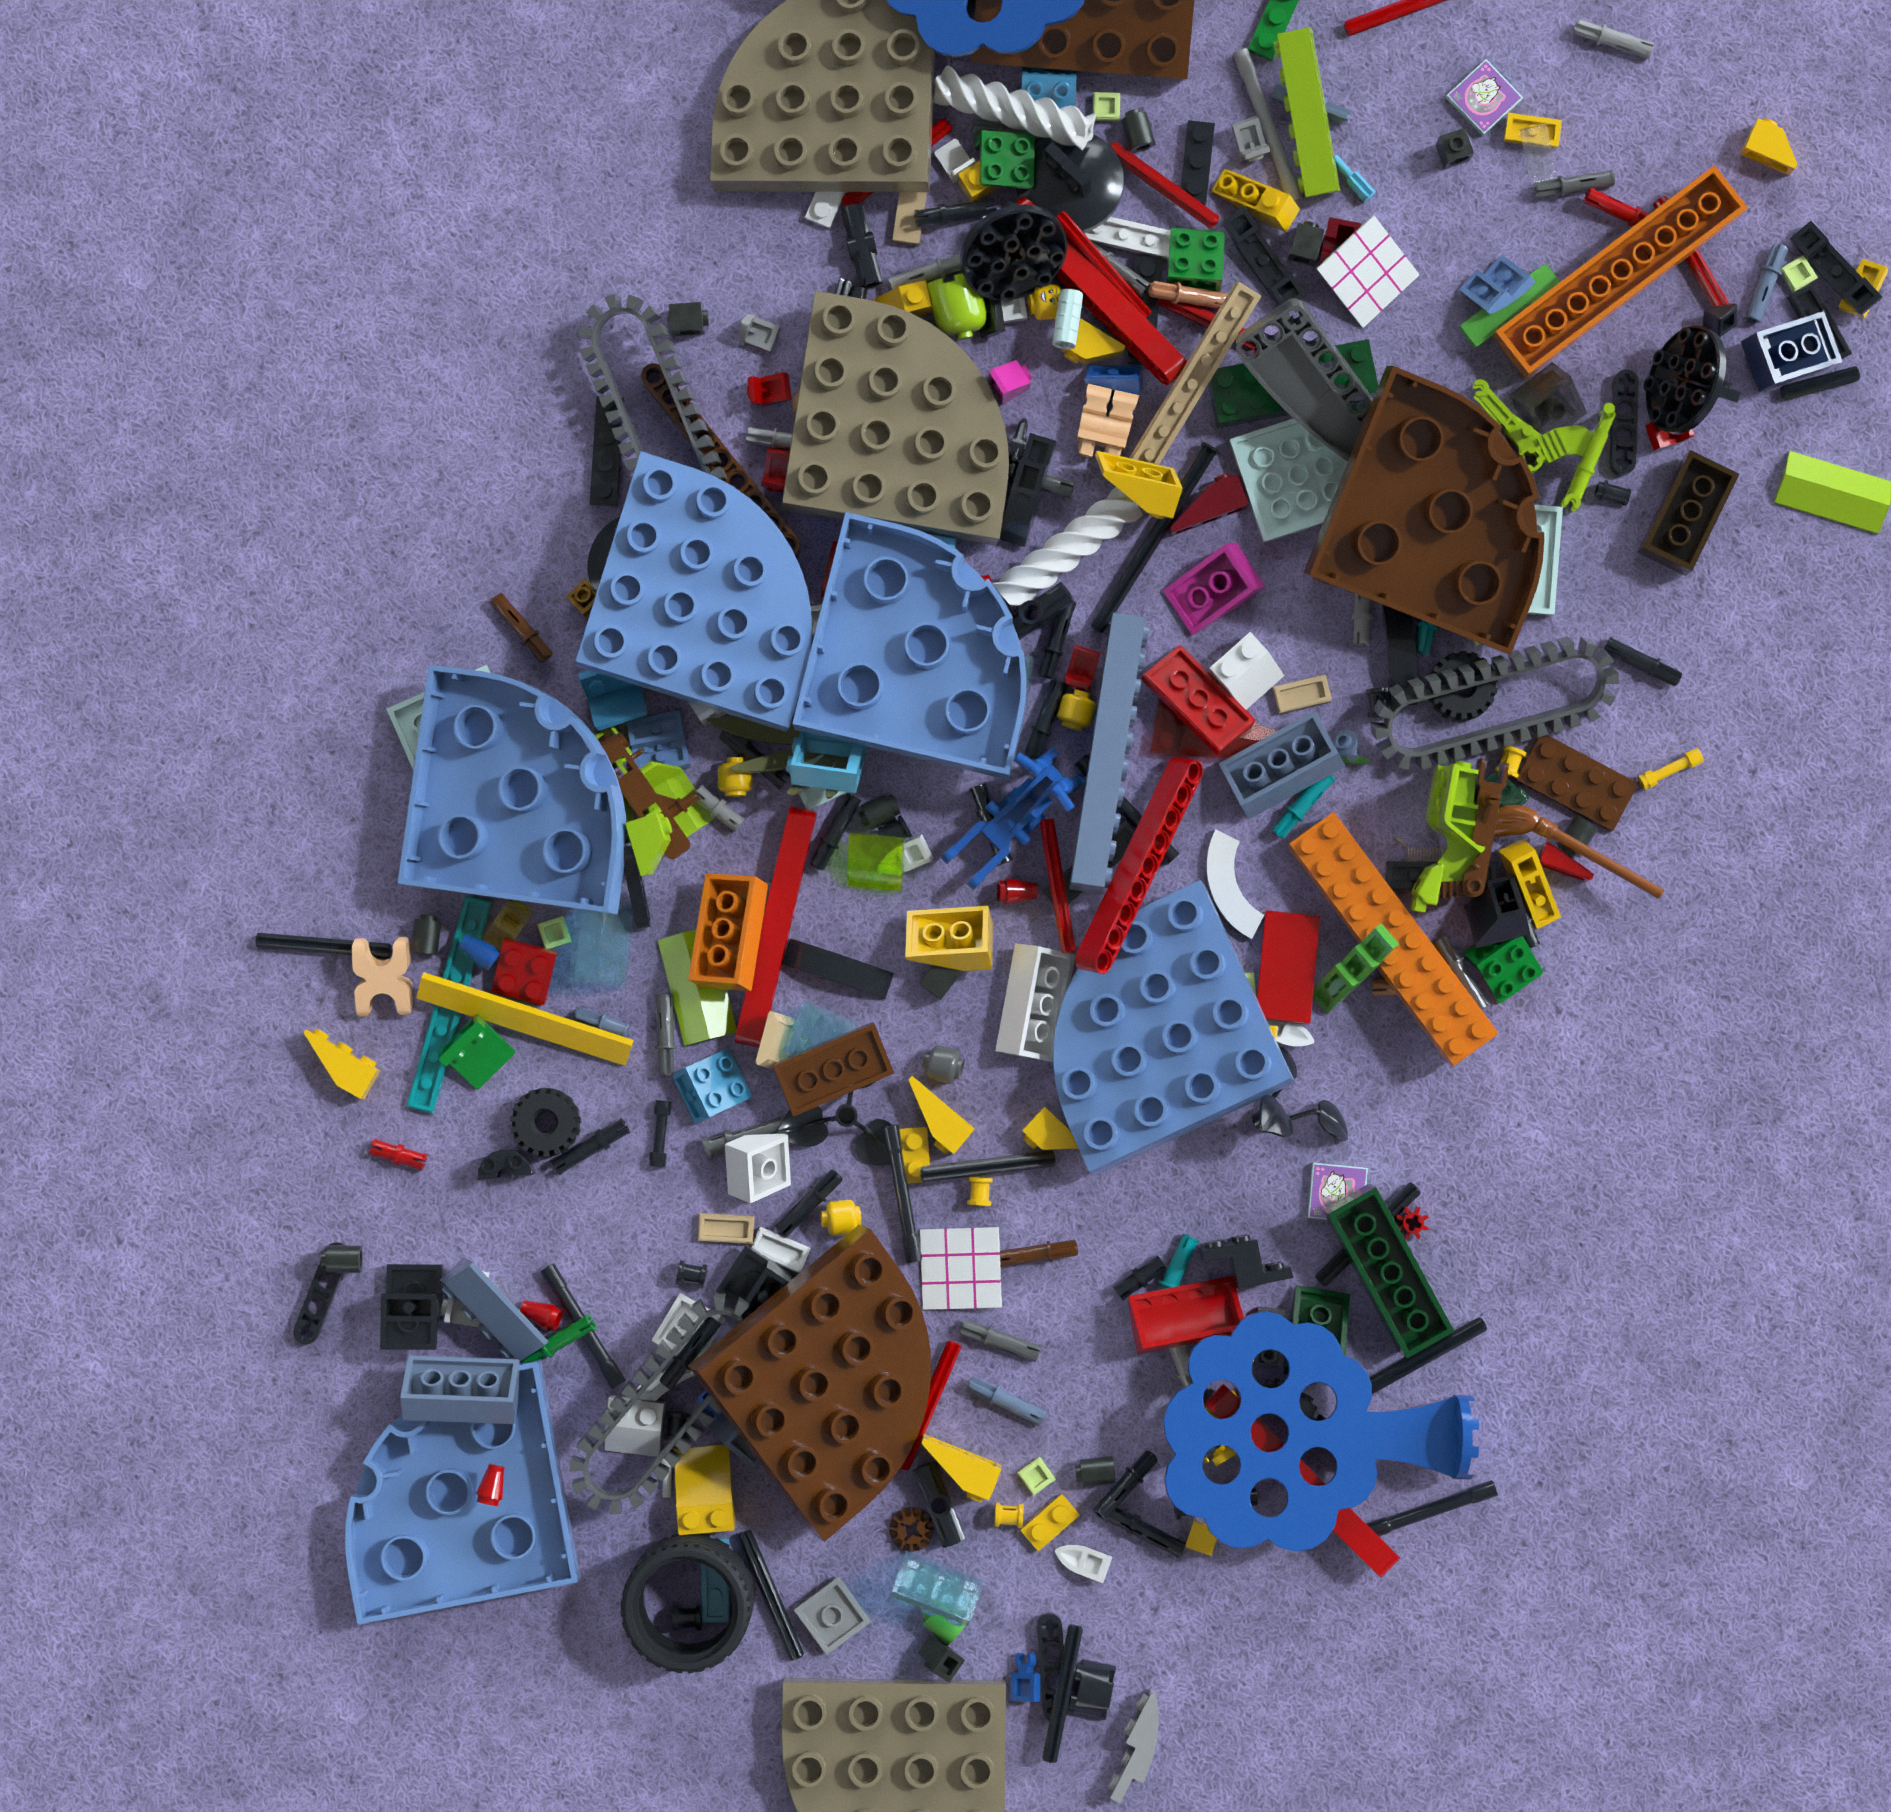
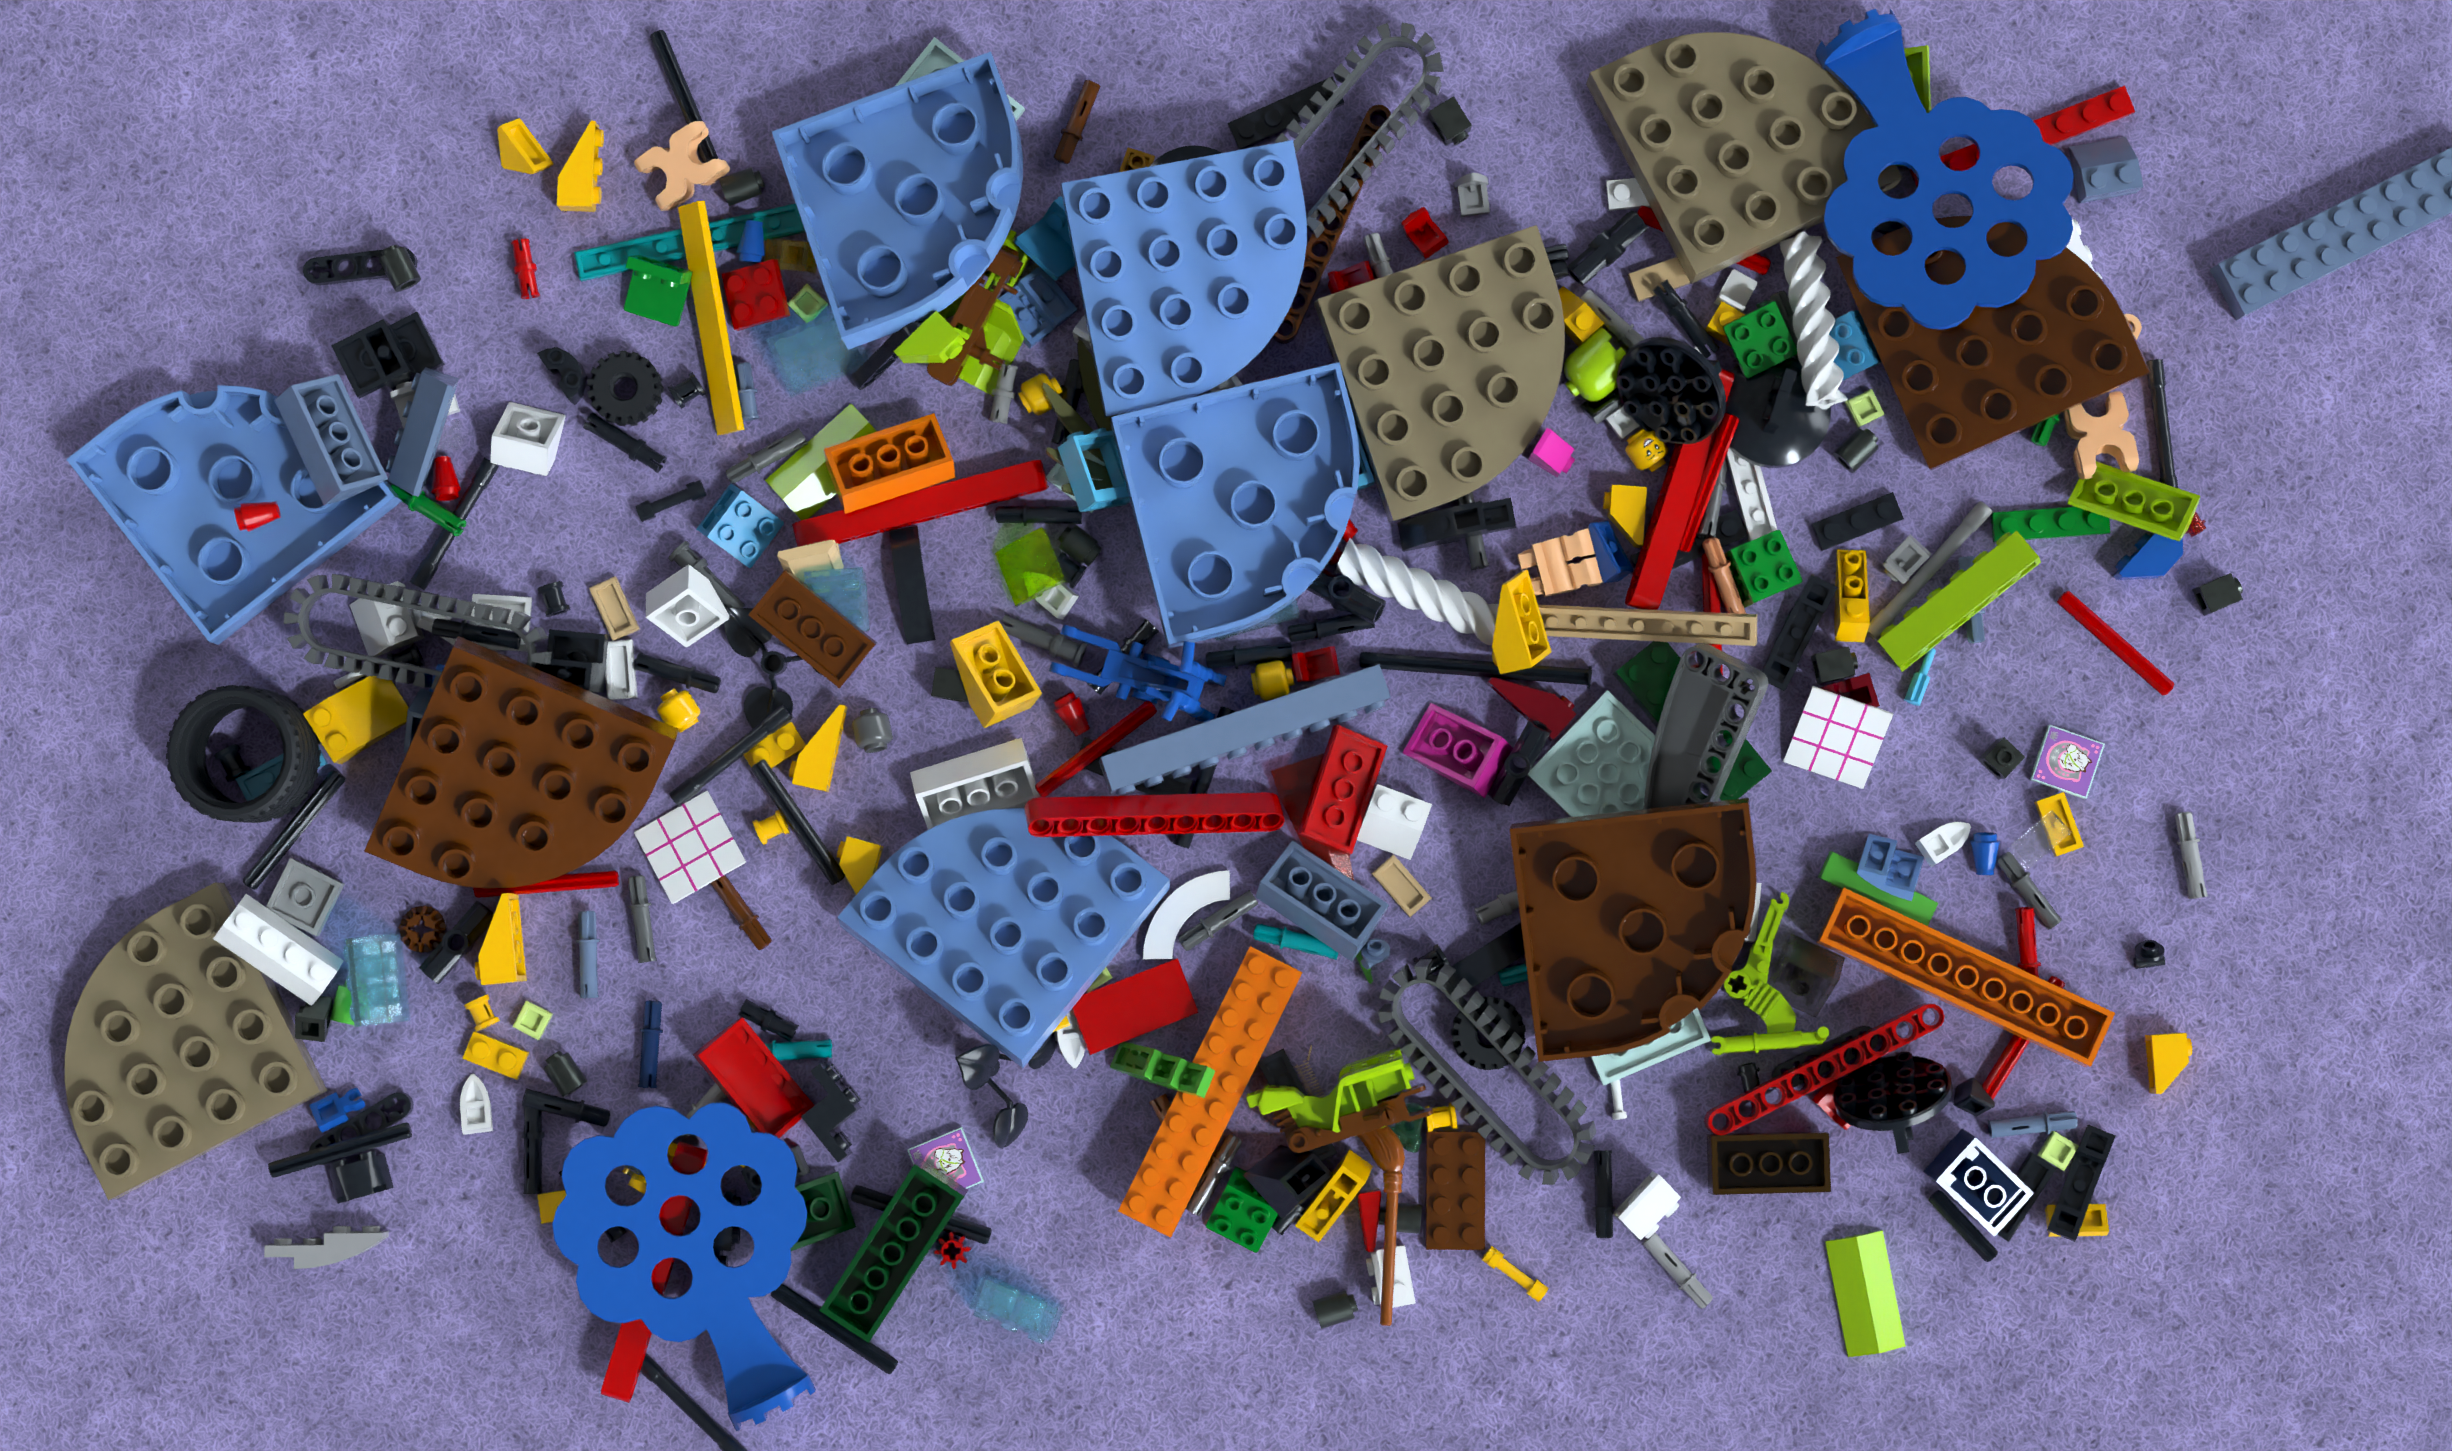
camera: 60 degrees right, 0 degrees up
(294, 1106) = (520, 149): none -> yellow slope
(544, 1226) = (527, 438): none -> white slope
(574, 1071) = (686, 390): none -> black bush
(868, 1657) = (278, 949): none -> white slope
(952, 874) = (1055, 644): none -> dark grey pin
(1017, 447) = (1492, 493): black piece -> none
(1067, 319) = (1638, 476): light aqua axle -> none
(1109, 1387) = (650, 1044): none -> dark blue axle
(1165, 187) = (1816, 502): red axle -> none
(1244, 528) = (1512, 777): none -> black piece
(1252, 860) = (1217, 920): none -> dark grey axle
(1488, 1194) = (1016, 1308): none -> clear light blue slope
(1498, 232) = (1943, 841): none -> white plate
(1524, 203) = (1985, 852): none -> blue cone
(1563, 607) = (1617, 1101): none -> white piece
(1607, 879) = (1403, 1288): none -> white bracket
(1623, 931) = (1335, 1309): none -> pearl dark grey brick
(1641, 415) = (1838, 1066): none -> red beam
(1671, 630) = (1647, 1206): none -> white slope
(1676, 115) = (2149, 954): none -> black plate
(1737, 634) = (1678, 1271): none -> light grey axle

